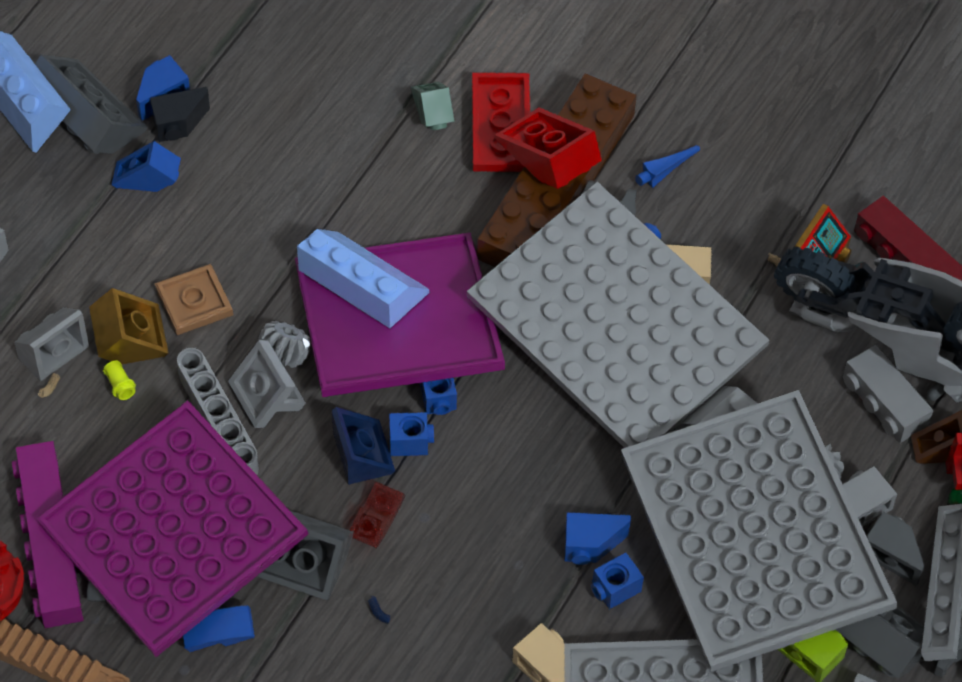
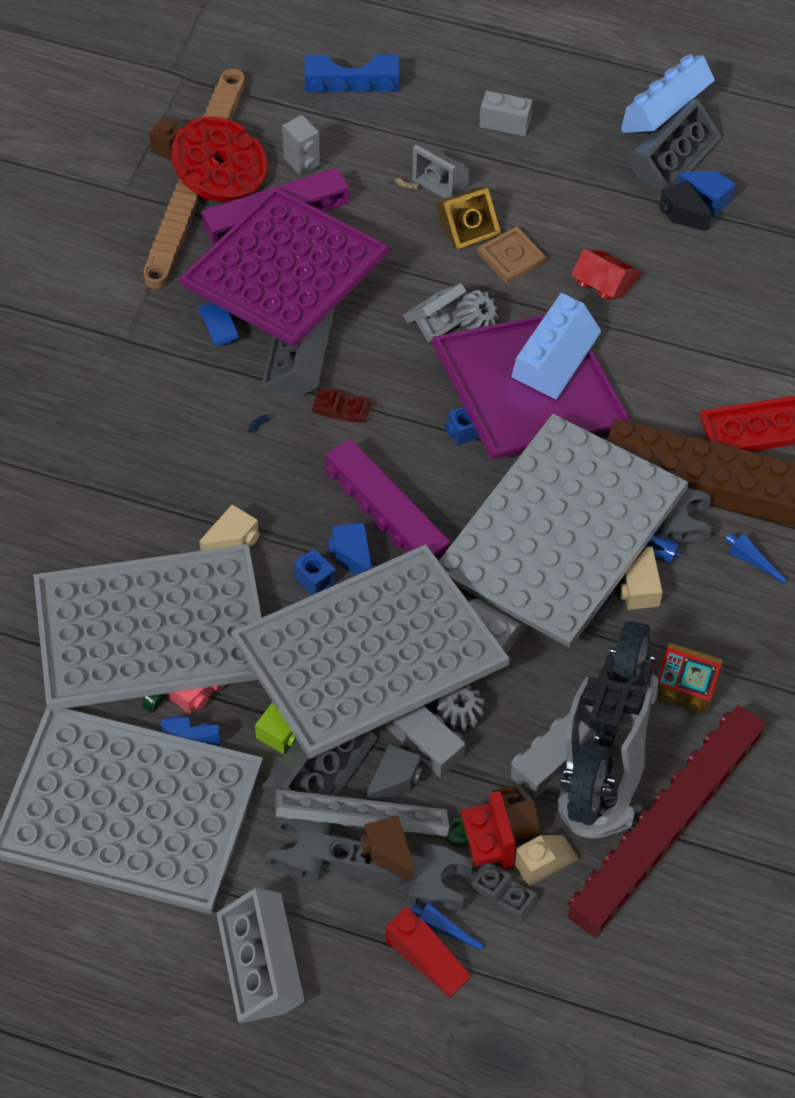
camera: 80 degrees right, 0 degrees up
(122, 386) = (416, 225): neon yellow pin -> none
(147, 169) = (622, 199): blue slope -> none
(214, 402) = (404, 286): light grey beam -> none
(255, 210) = (604, 273): none -> red slope
(361, 446) = (399, 379): dark blue slope -> none
(410, 423) = (418, 411): blue brick -> none
(433, 104) = (756, 372): sand green slope -> none
(534, 491) = (383, 500): none -> magenta brick
(551, 146) = (716, 445): red slope -> none

